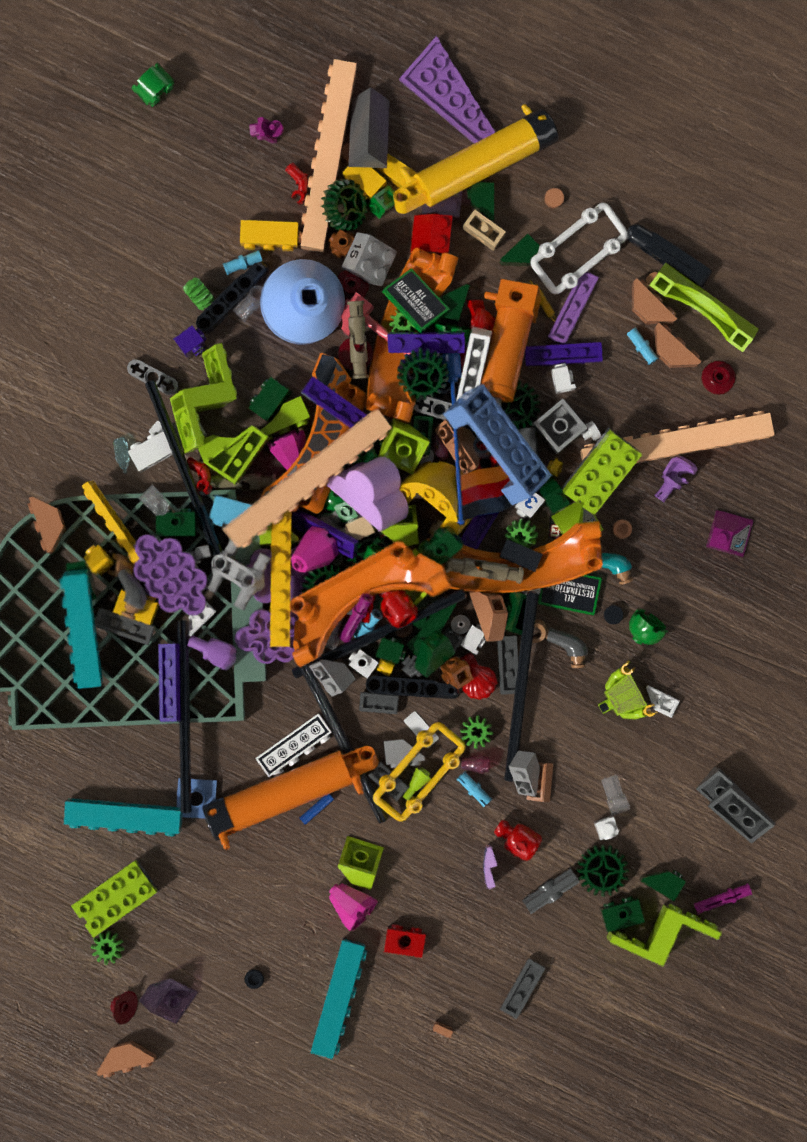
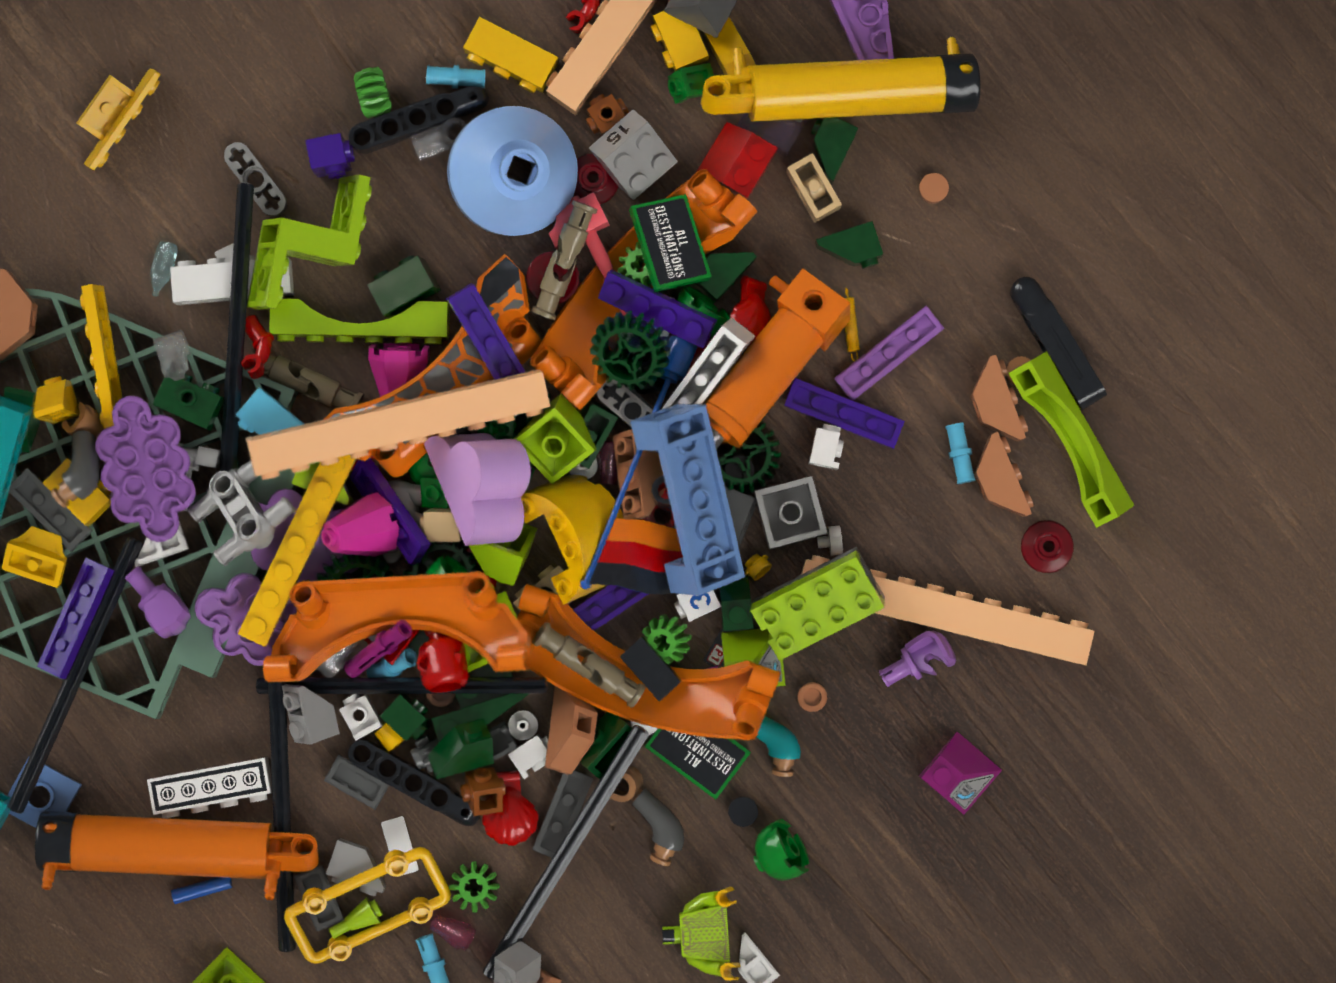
camera: 25 degrees right, 0 degrees up
(49, 377) = (111, 112): none -> yellow bracket
(129, 657) = (36, 556): none -> yellow slope
(238, 455) = (320, 344): lime wedge -> none
(339, 206) = (624, 62): dark green gear -> none
(442, 545) = (542, 605): dark green brick -> none
(547, 249) = (889, 257): white bar -> none

